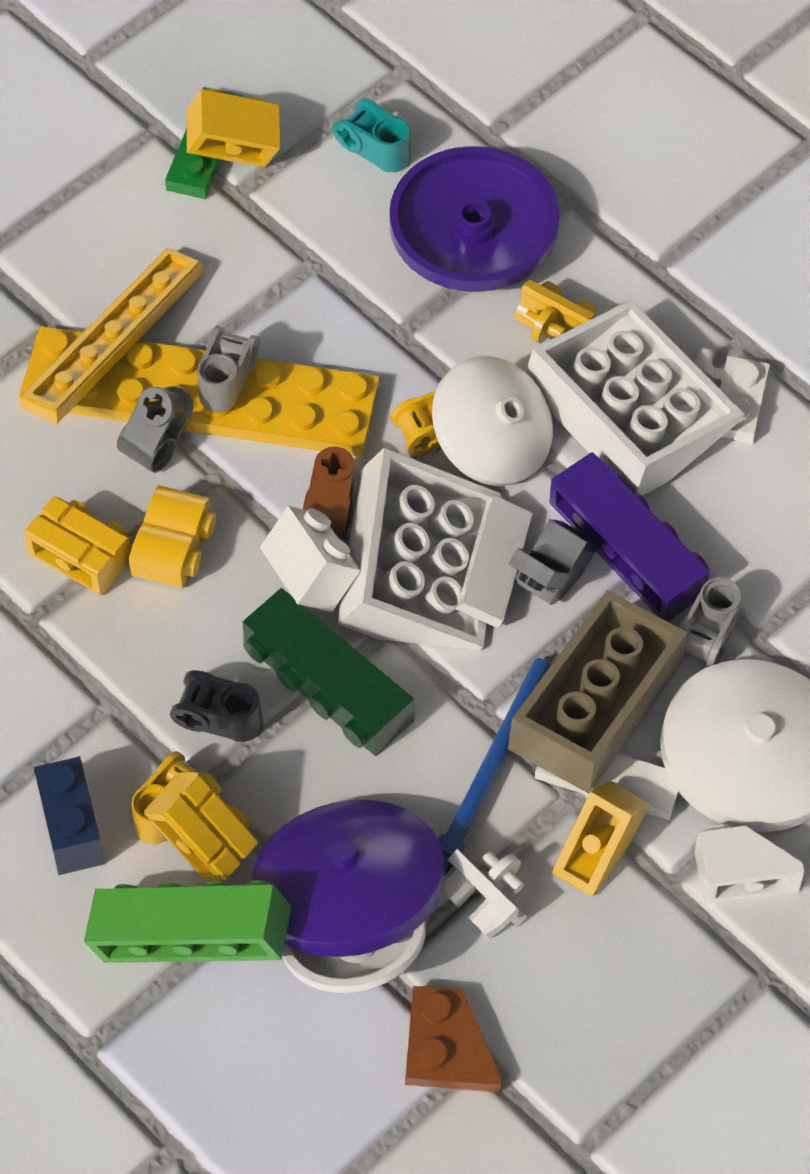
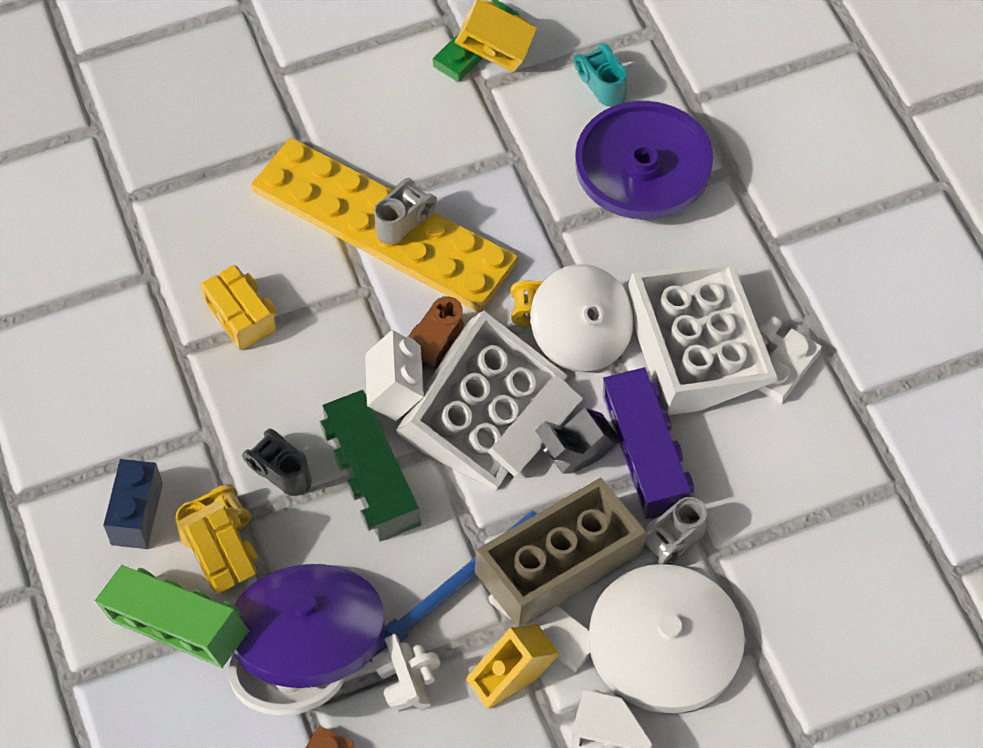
camera: 25 degrees right, 0 degrees up
(111, 336) = (334, 160): yellow tile -> none
(154, 427) = (329, 239): dark grey piece -> none
(171, 537) = (307, 324): yellow brick -> none
(549, 312) = (668, 250): yellow hips -> none

